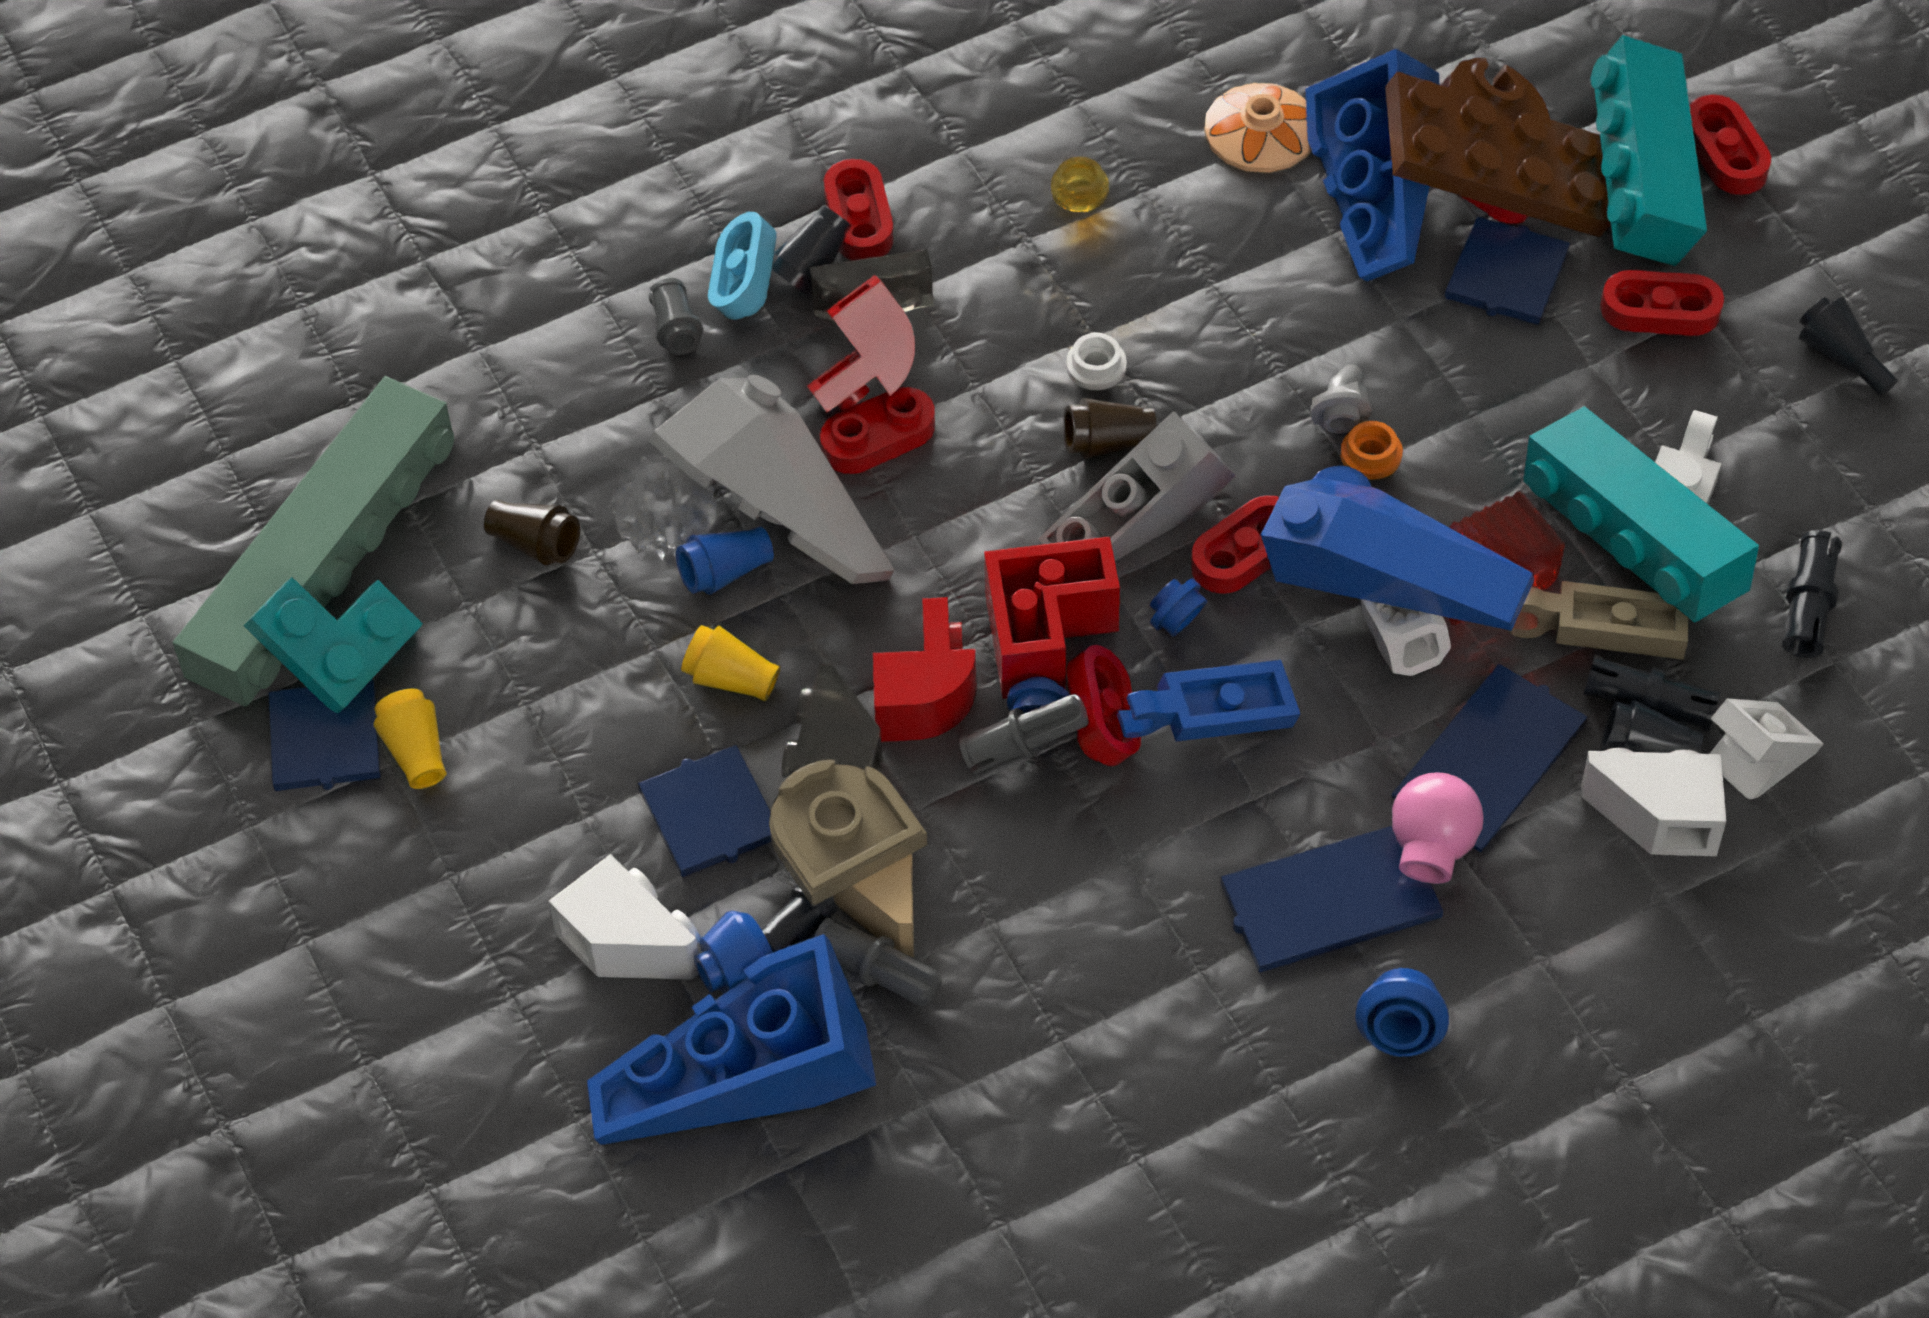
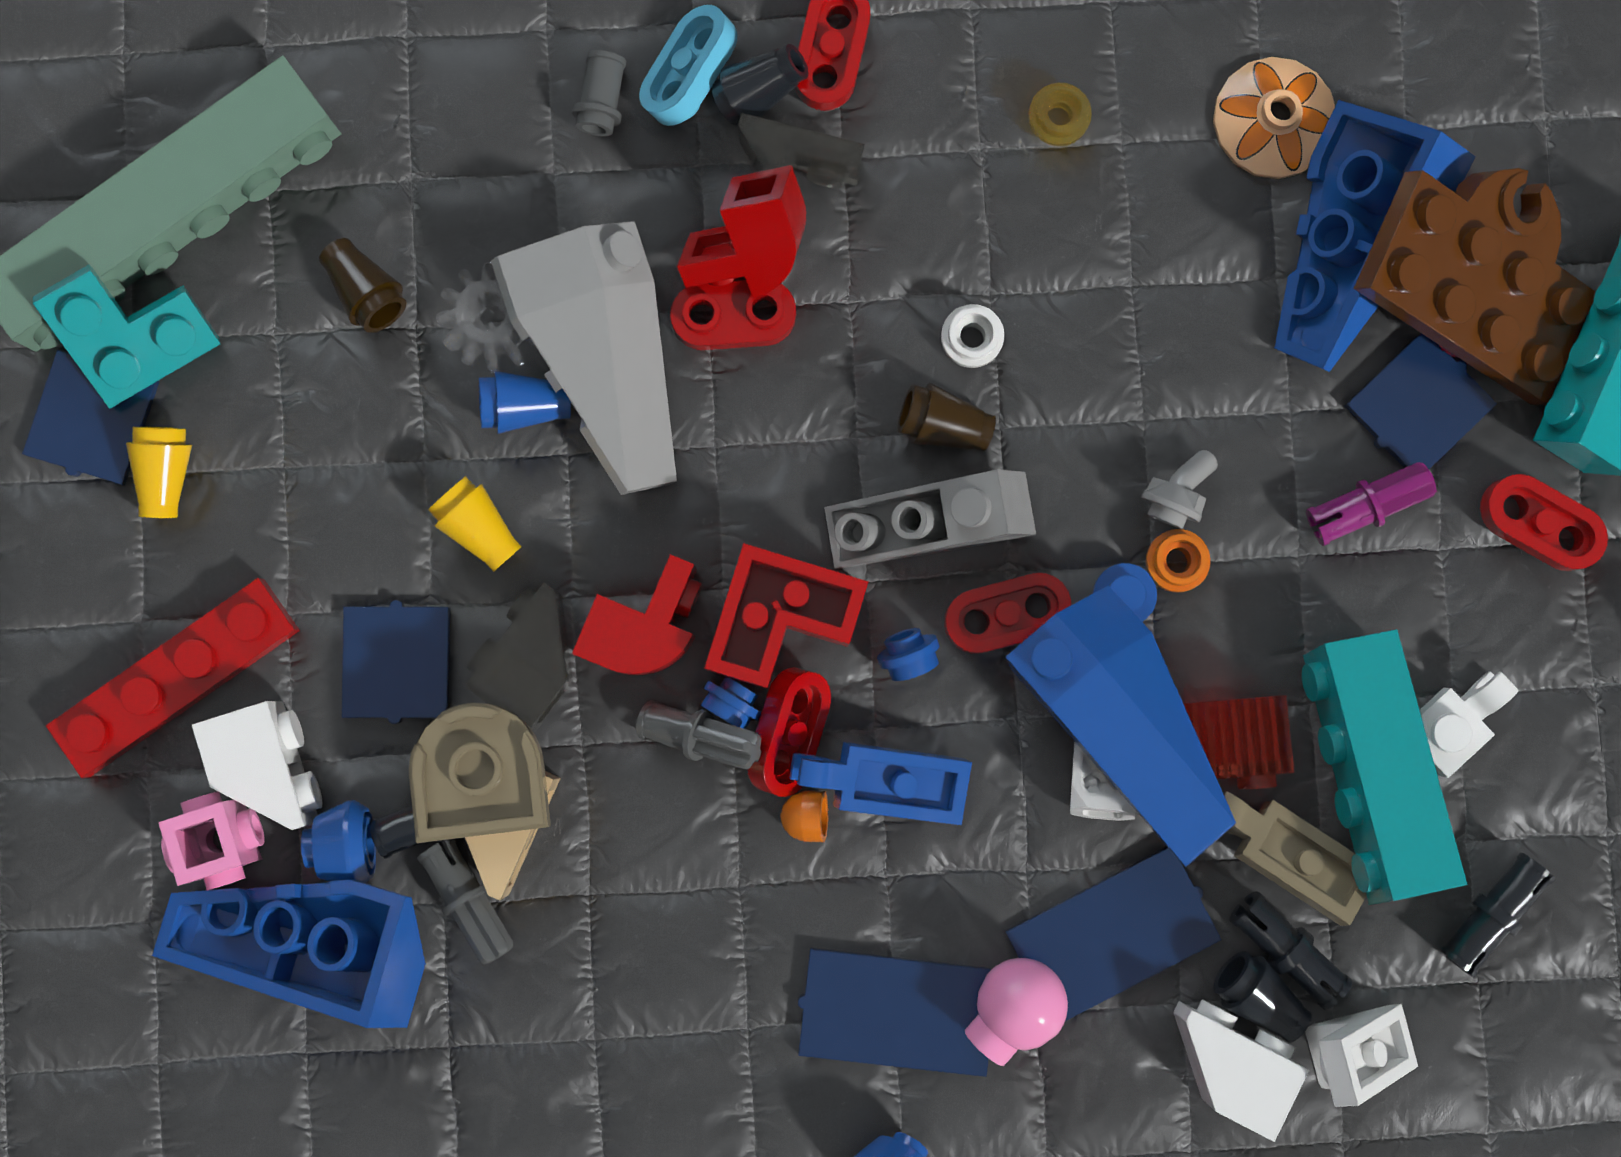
camera: 15 degrees right, 30 degrees up
(502, 905) = (172, 678): none -> red plate
(611, 996) = (190, 846): none -> bright pink brick
(1156, 768) = (806, 816): none -> orange hinge
(1508, 345) = (1372, 502): none -> magenta axle

